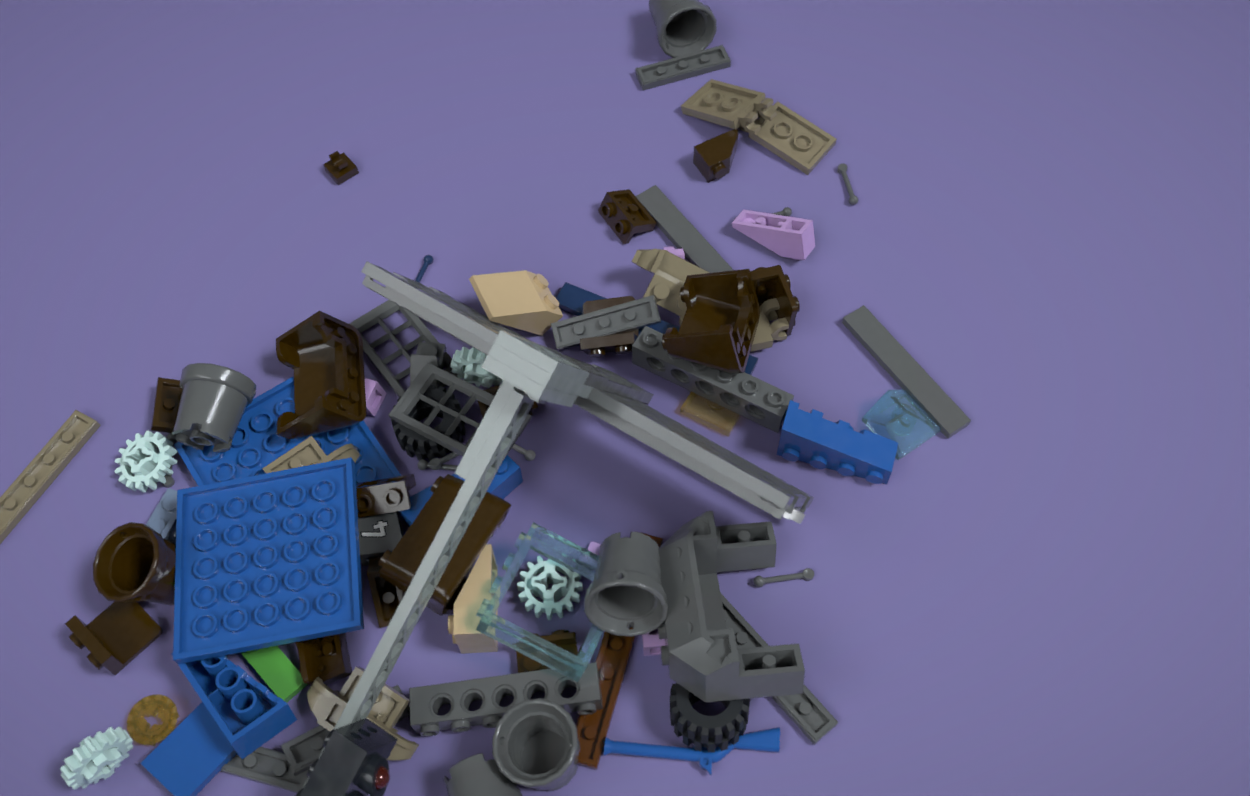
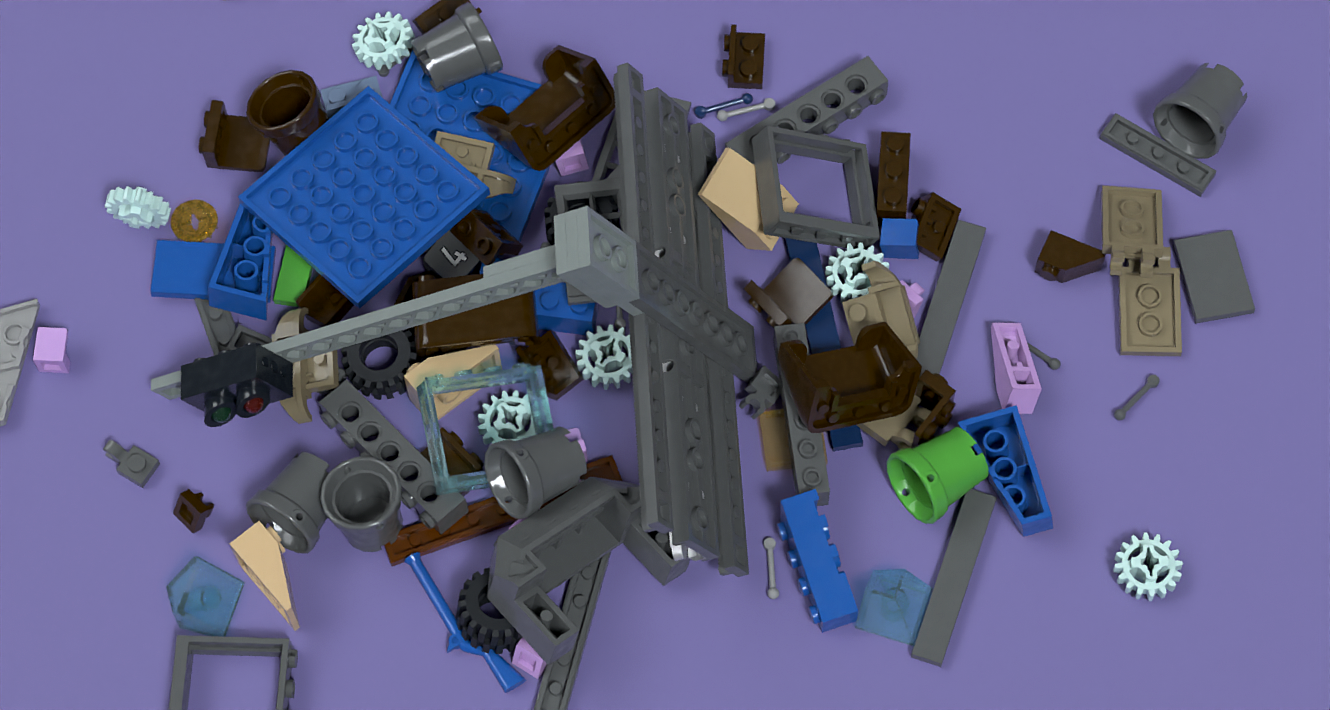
camera: 55 degrees right, 5 degrees up
(397, 241) = (745, 59): none -> dark brown bracket
(435, 660) = (386, 380): none -> black tyre
(444, 250) = (769, 104): none -> light grey hinge
(480, 227) = (813, 105): none -> dark grey brick
(520, 520) = (557, 366): none -> dark brown bracket
(546, 489) = (603, 345): none -> light aqua gear
(573, 211) = (893, 176): none -> dark brown brick
(591, 252) = (809, 228): none -> dark grey window
(606, 322) = (790, 290): dark grey tile -> none
(622, 235) = (899, 238): none -> blue panel
(622, 276) = (849, 264): none -> light aqua gear
(668, 393) = (762, 391): none -> dark grey plate
(766, 710) = (528, 659): none -> lavender tile
(790, 472) = (769, 545): none -> light grey hinge
(797, 91) = (1213, 276): none -> dark grey tile
(807, 575) = (680, 618): dark grey hinge -> none
(827, 325) = (936, 473): none -> bright green piece
(852, 280) = (1011, 467): none -> blue wedge
(982, 251) = (1157, 557): none -> light aqua gear

